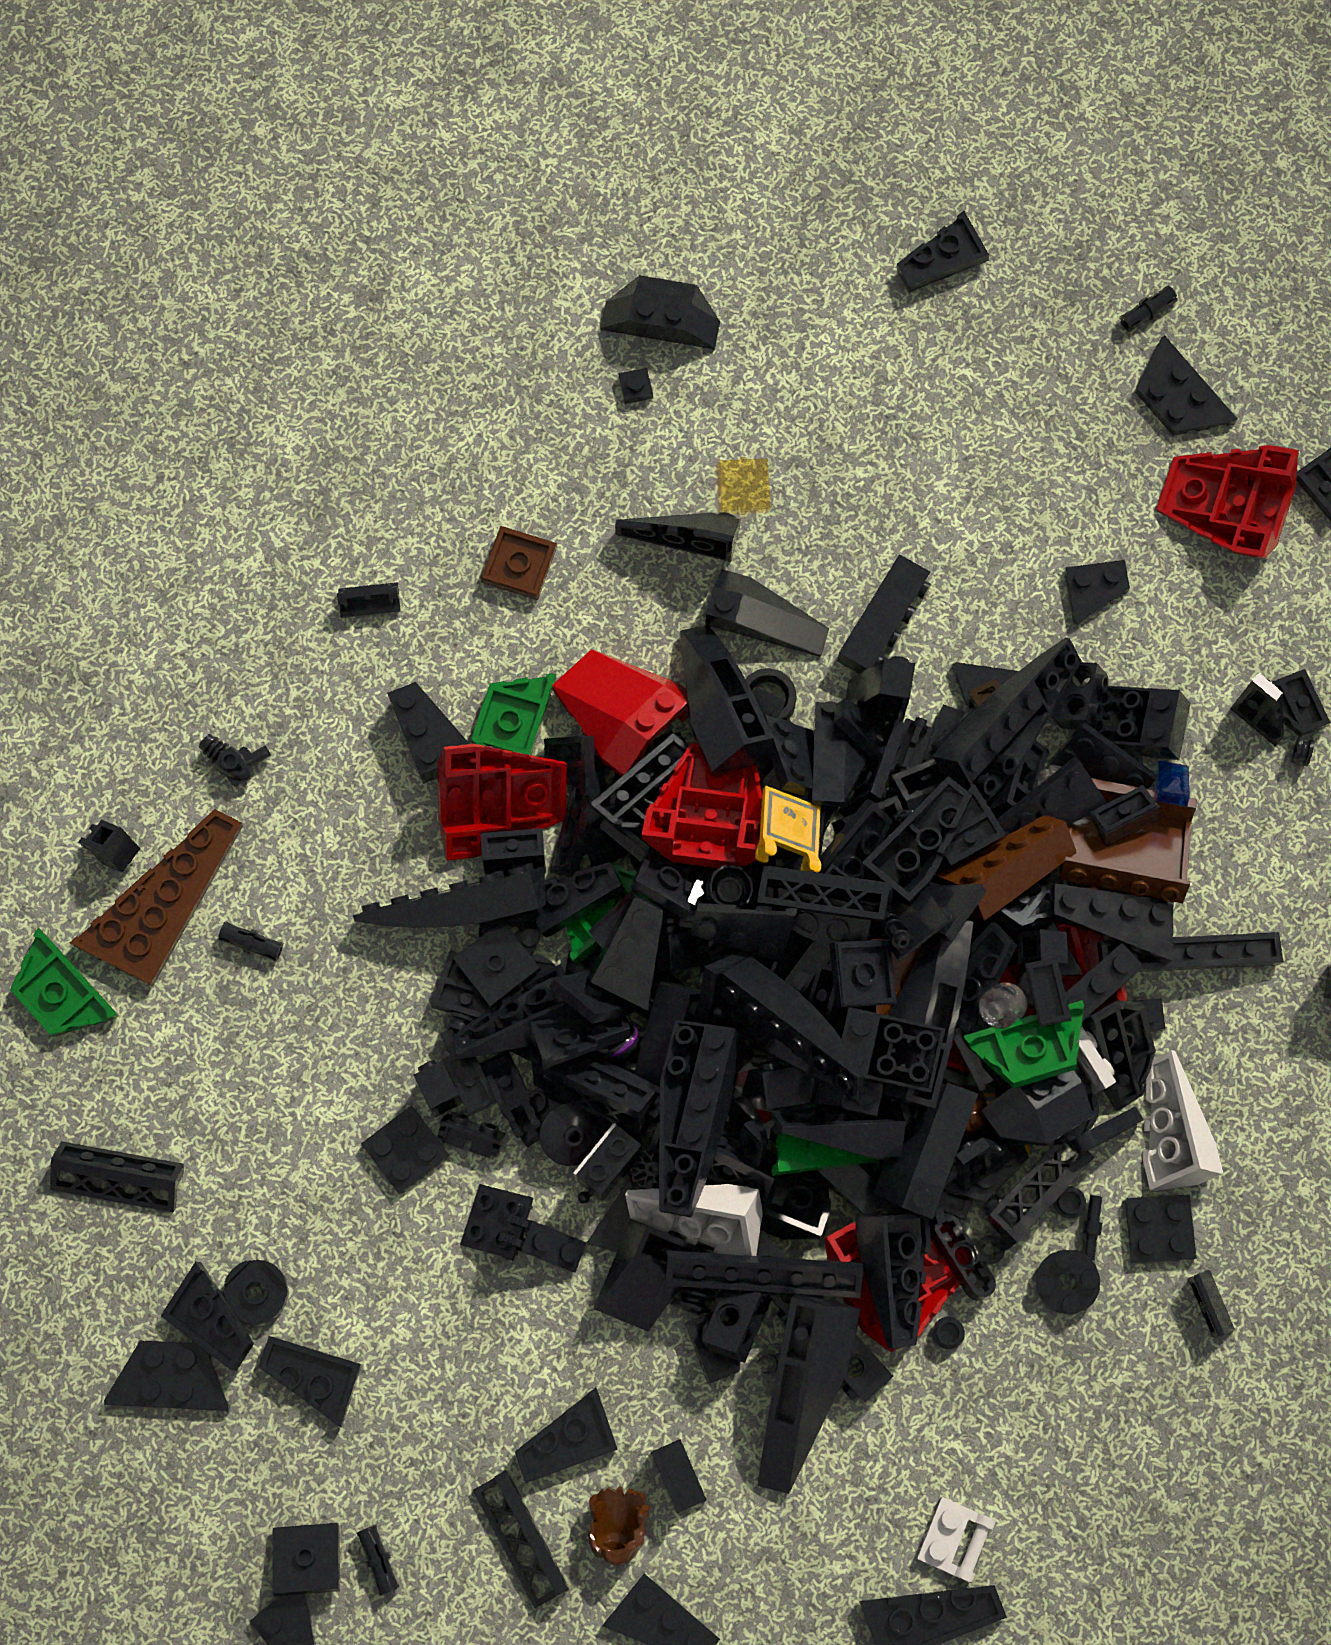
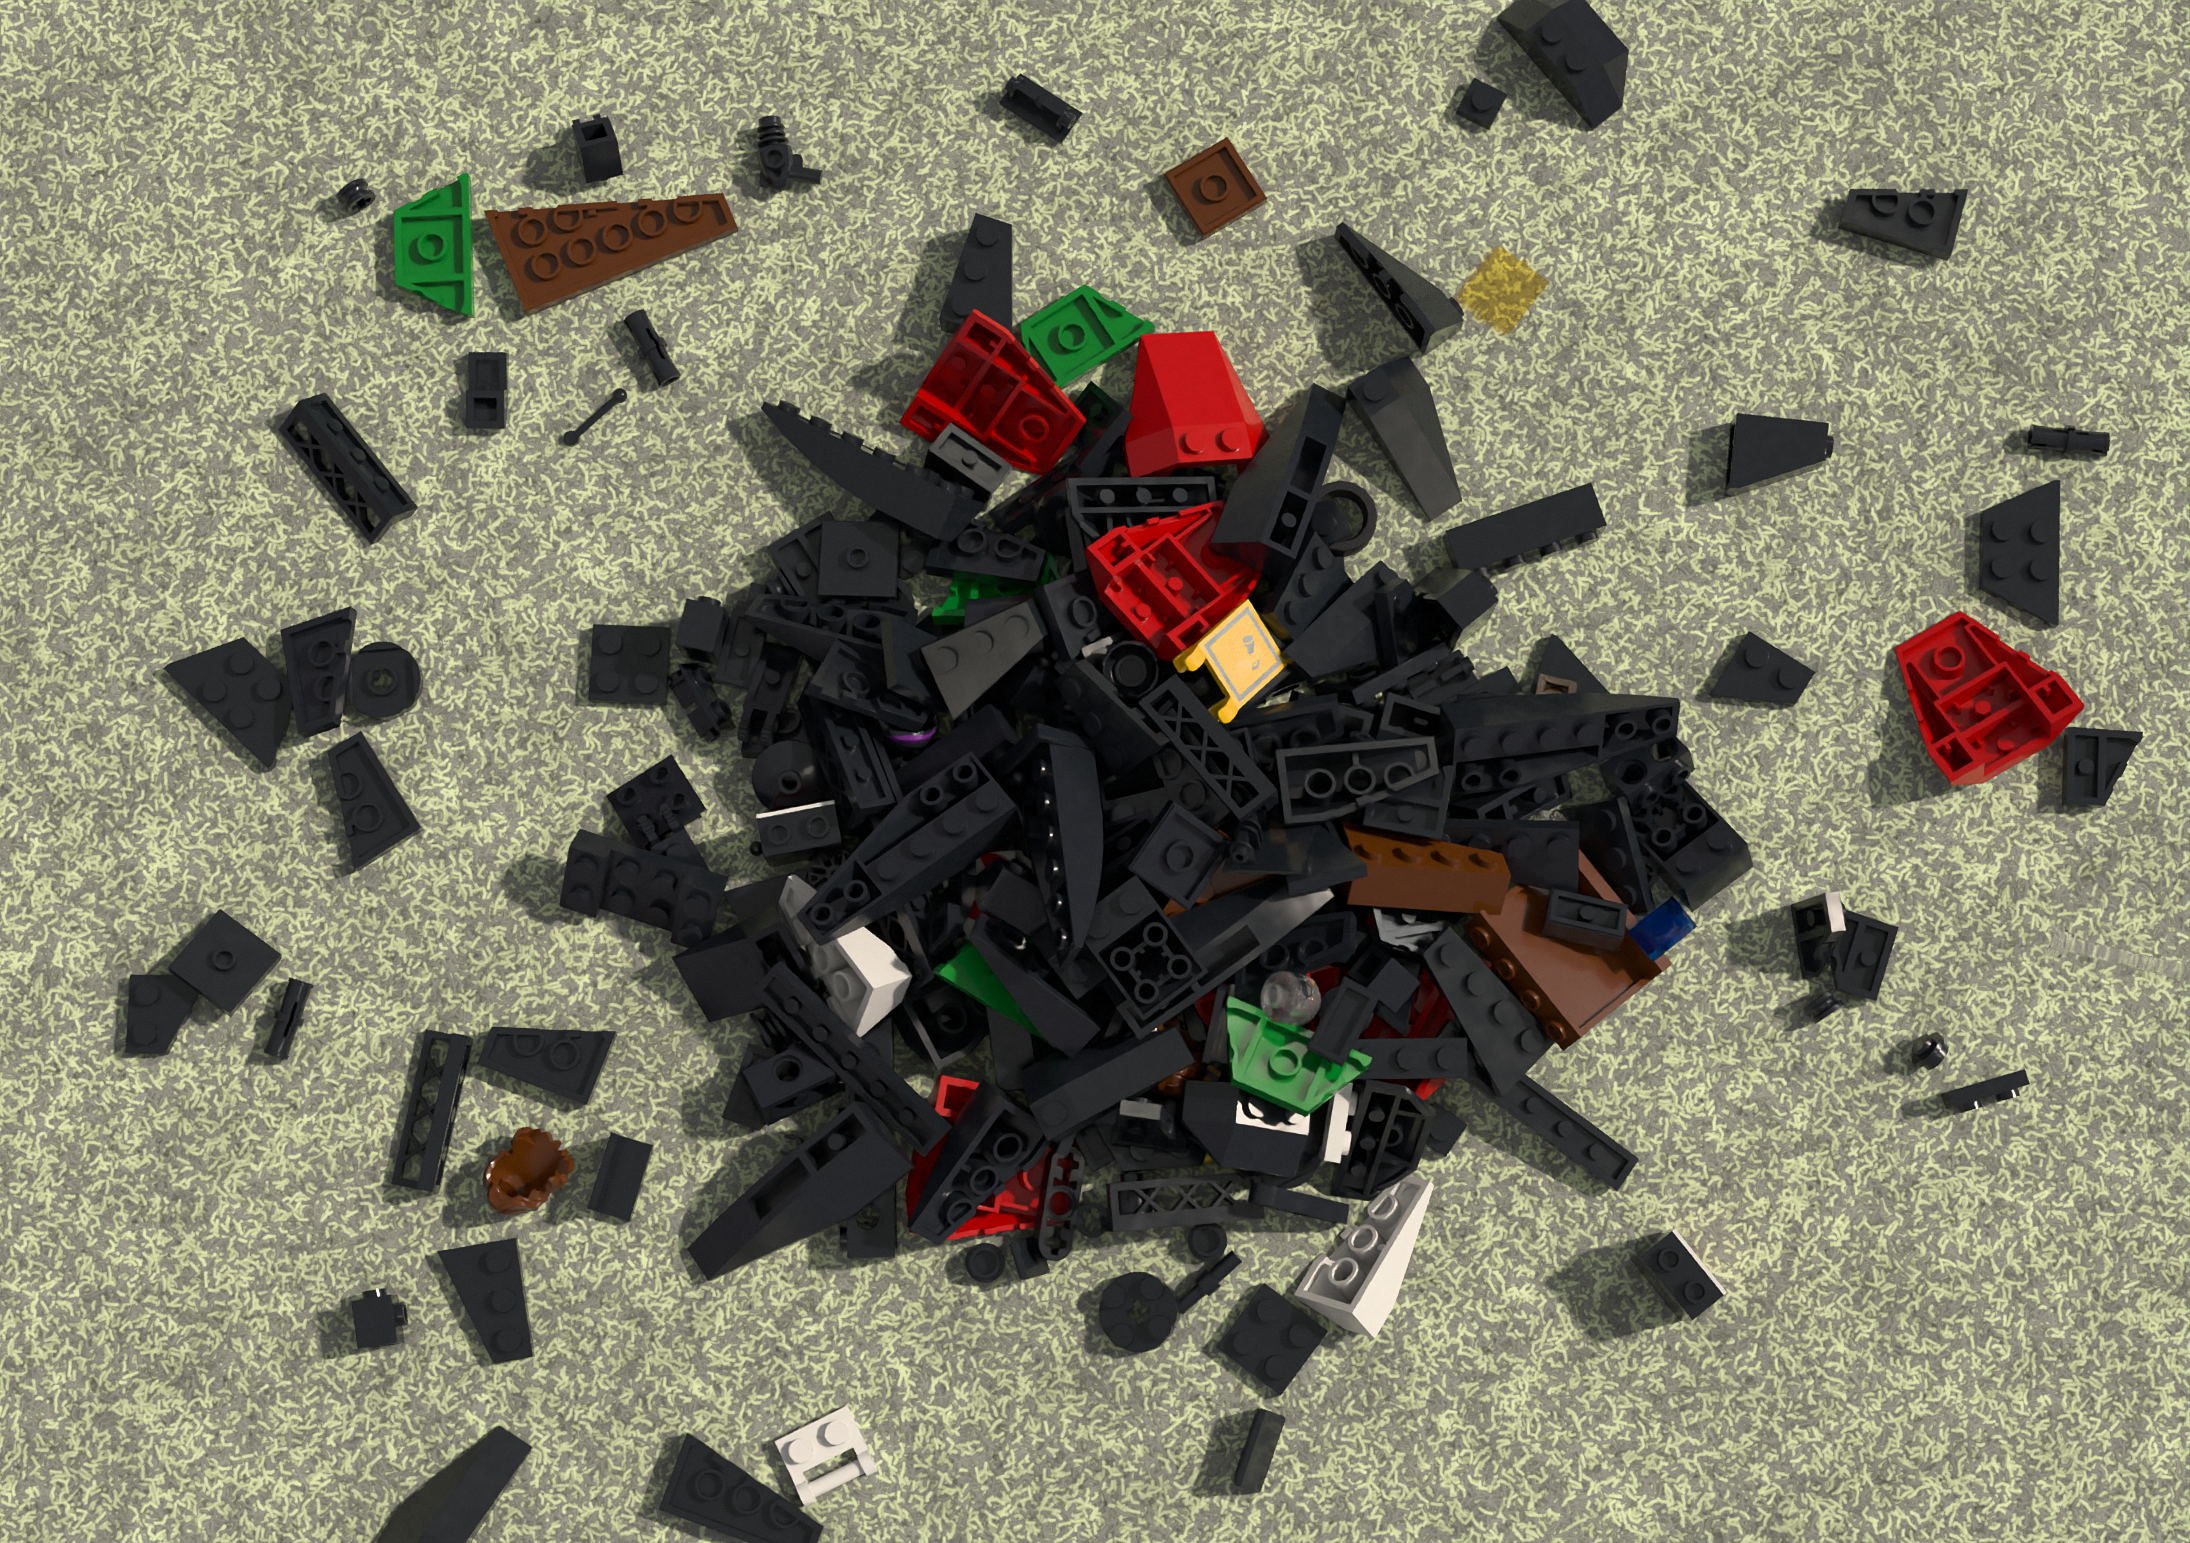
camera: 40 degrees right, 5 degrees up
(166, 1053) = (487, 390): none -> black slope
(246, 1039) = (572, 438): none -> black hinge
(537, 1281) = (641, 887): none -> black piece
(973, 1310) = (1026, 1260): none -> black slope
(986, 450) = (1773, 450): none -> black slope

